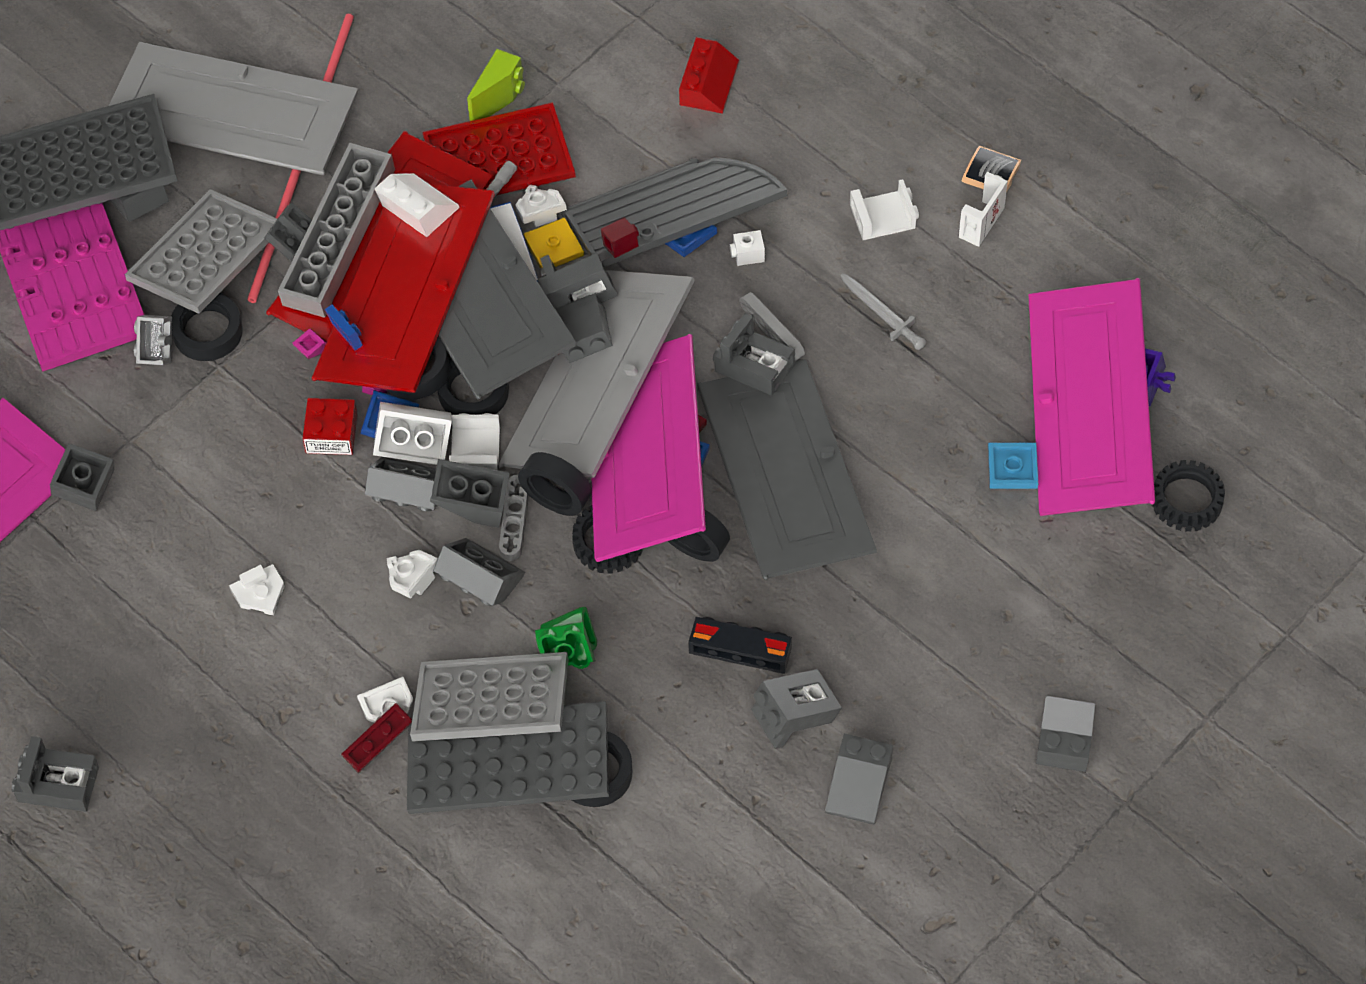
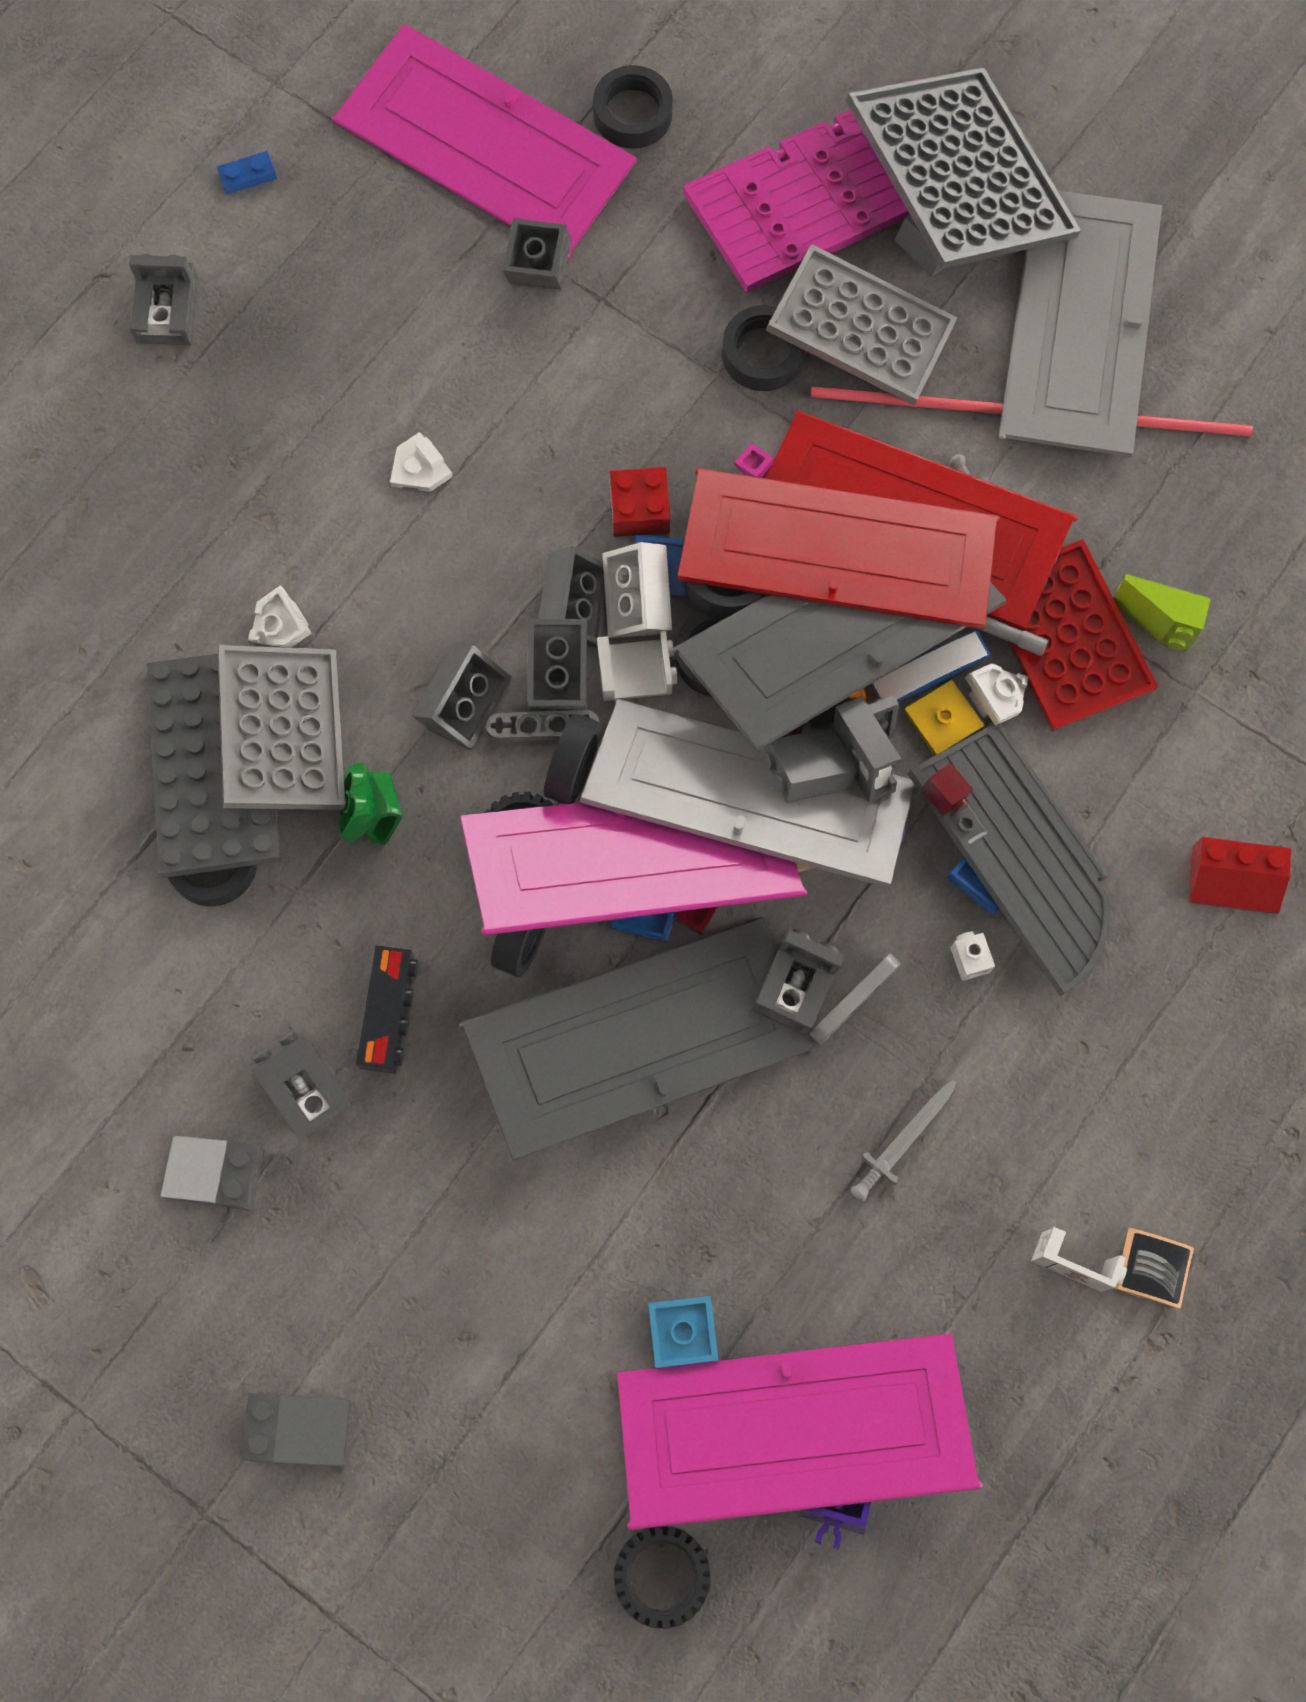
camera: 80 degrees right, 15 degrees up
(153, 339) = (728, 292): light grey window -> none
(289, 231) = (903, 418): dark grey slope -> none
(335, 231) = (909, 459): light grey brick -> none
(340, 322) = (756, 490): blue plate -> none
(377, 738) = (232, 616): dark red tile -> none
(411, 572) = (452, 620): white plate -> none
(415, 202) = (957, 538): white slope -> none
(884, 213) = (1061, 1127): white panel -> none

